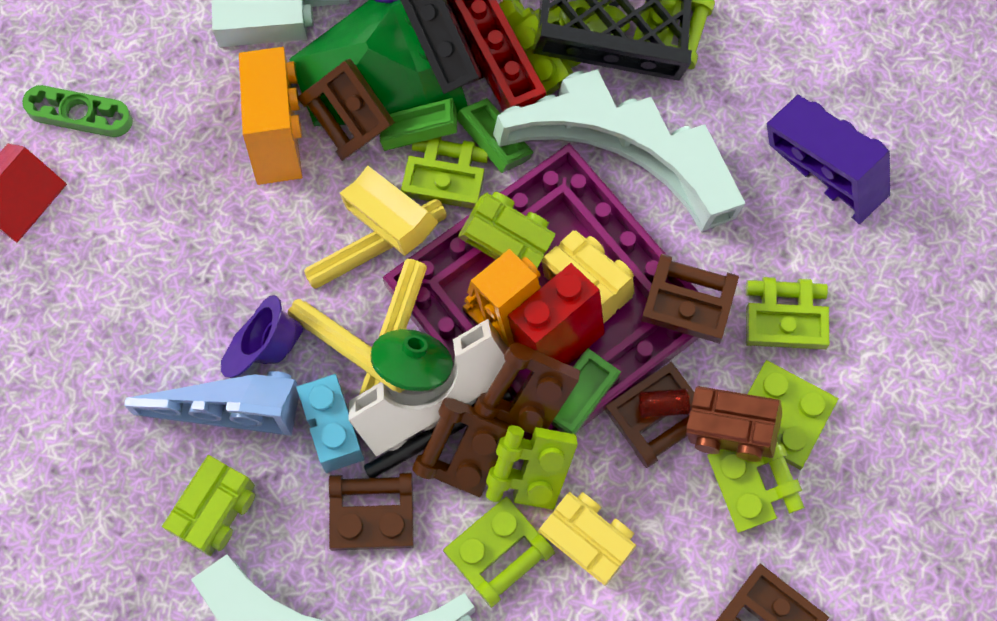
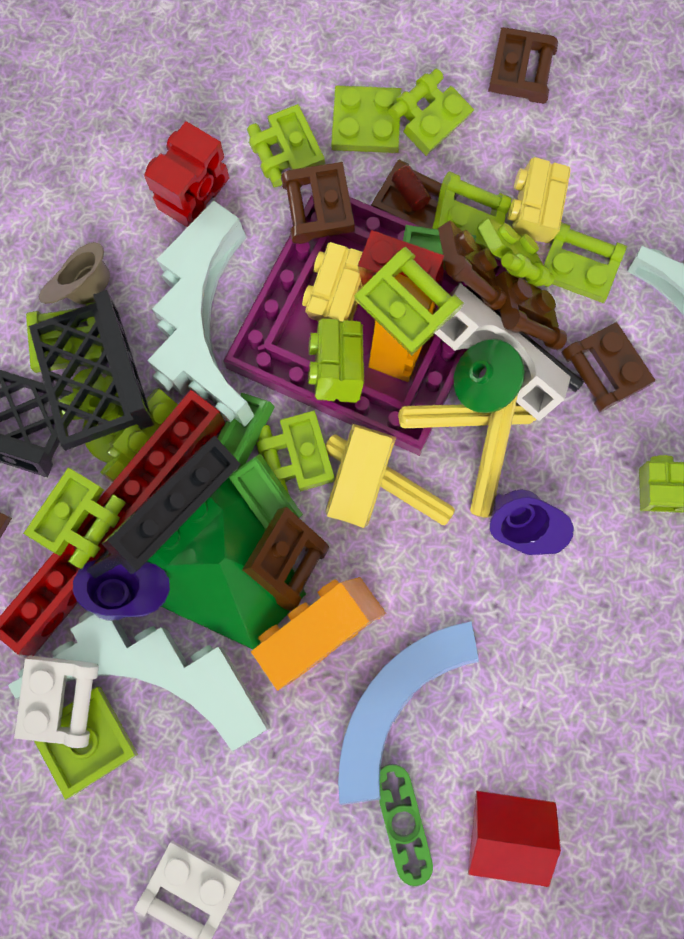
camera: 115 degrees left, 5 degrees up
(183, 145) = (385, 700): none -> light blue tile
(239, 403) = (586, 492): light blue wedge -> none
(329, 423) = (564, 426): medium azure piece -> none
(490, 257) = (399, 310): none -> lime plate
(598, 447) = (465, 216): none -> lime plate
(722, 52) = (79, 277): none -> dark tan piece
(734, 423) = (404, 125): copper brick -> none
(785, 188) = (187, 174): none -> red brick
(833, 152) = (138, 138): dark purple wedge -> none

